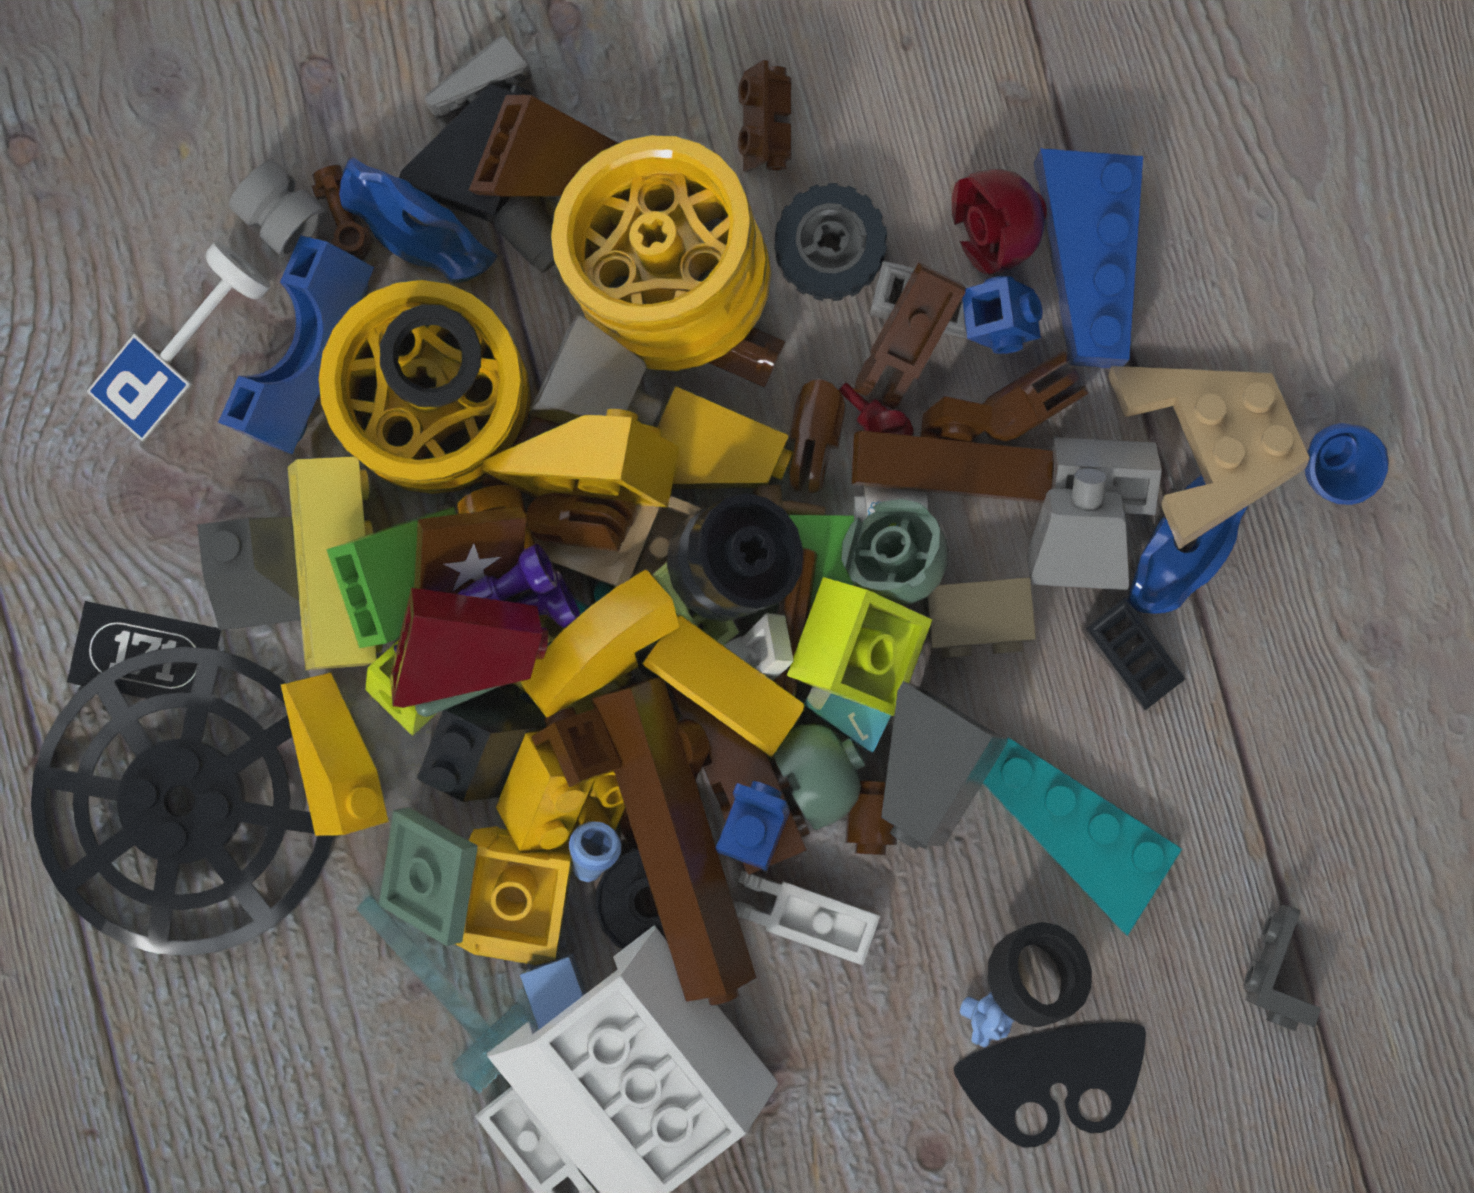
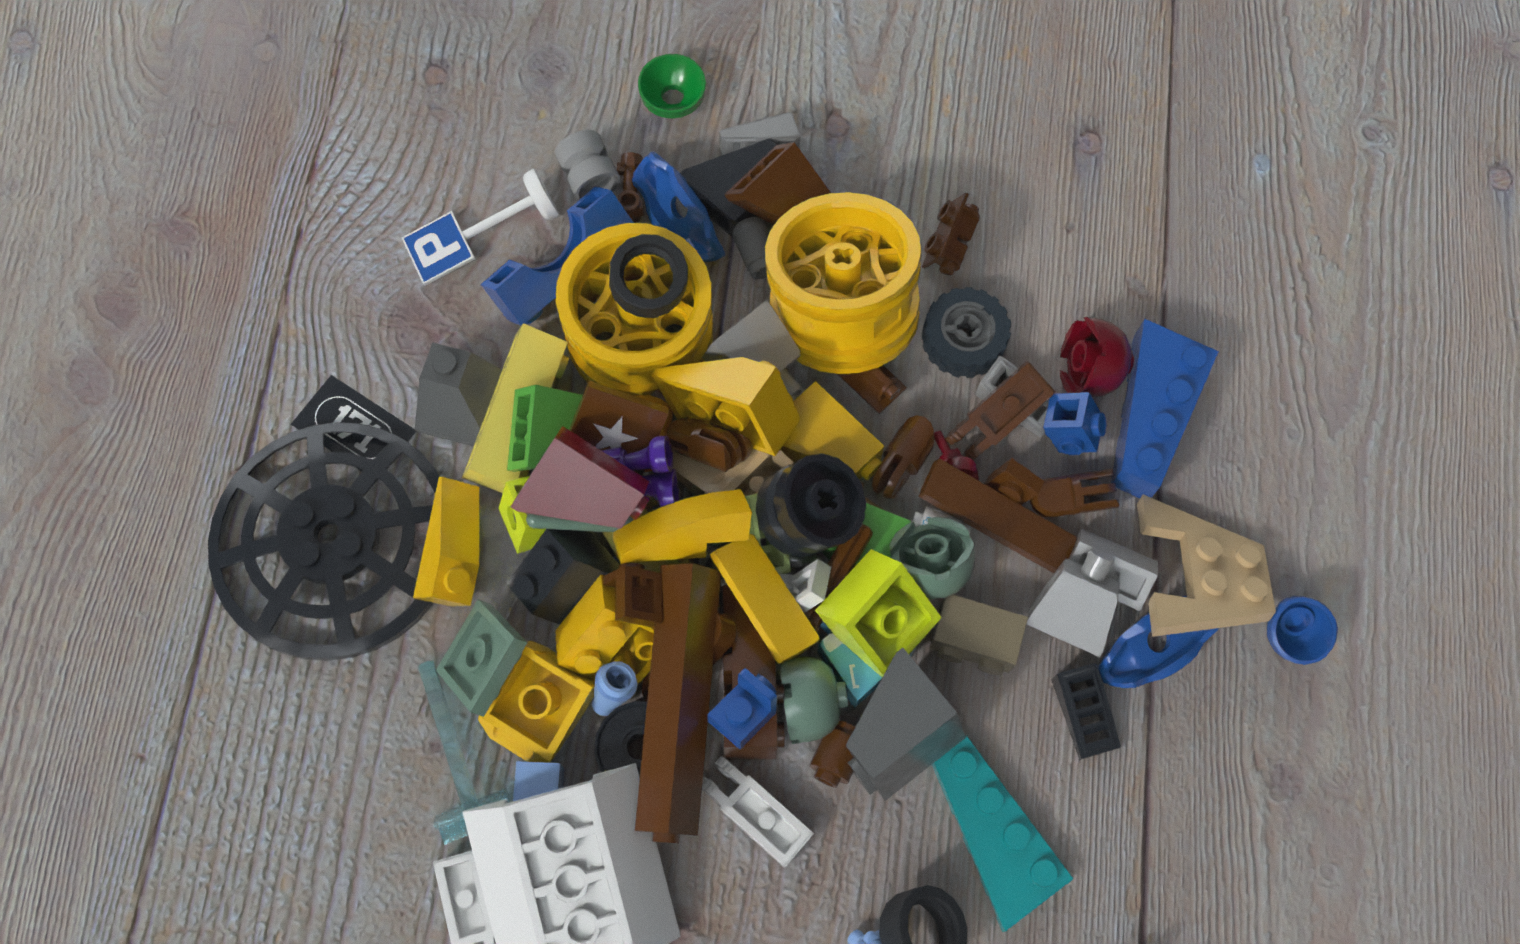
camera: 20 degrees right, 15 degrees down
(332, 29) = (671, 73): none -> green piece

